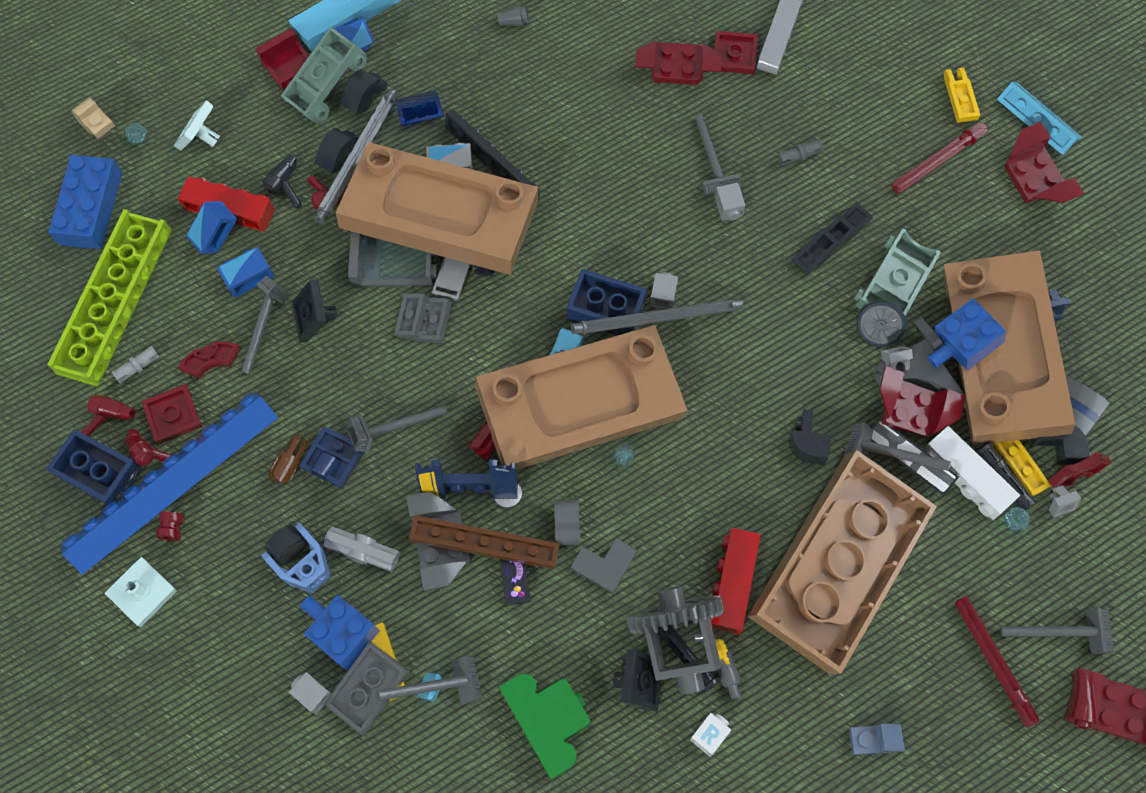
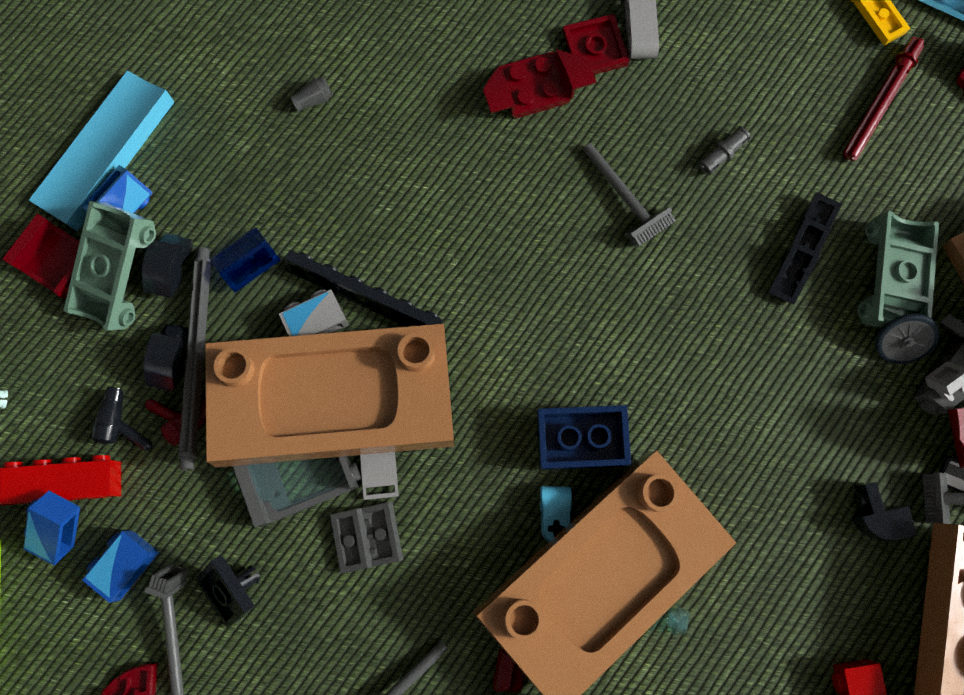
camera: 25 degrees left, 10 degrees up
(656, 316) = (650, 439): dark grey piece -> none
(663, 291) = (640, 390): light grey brick -> none
(730, 202) = (670, 246): light grey brick -> none

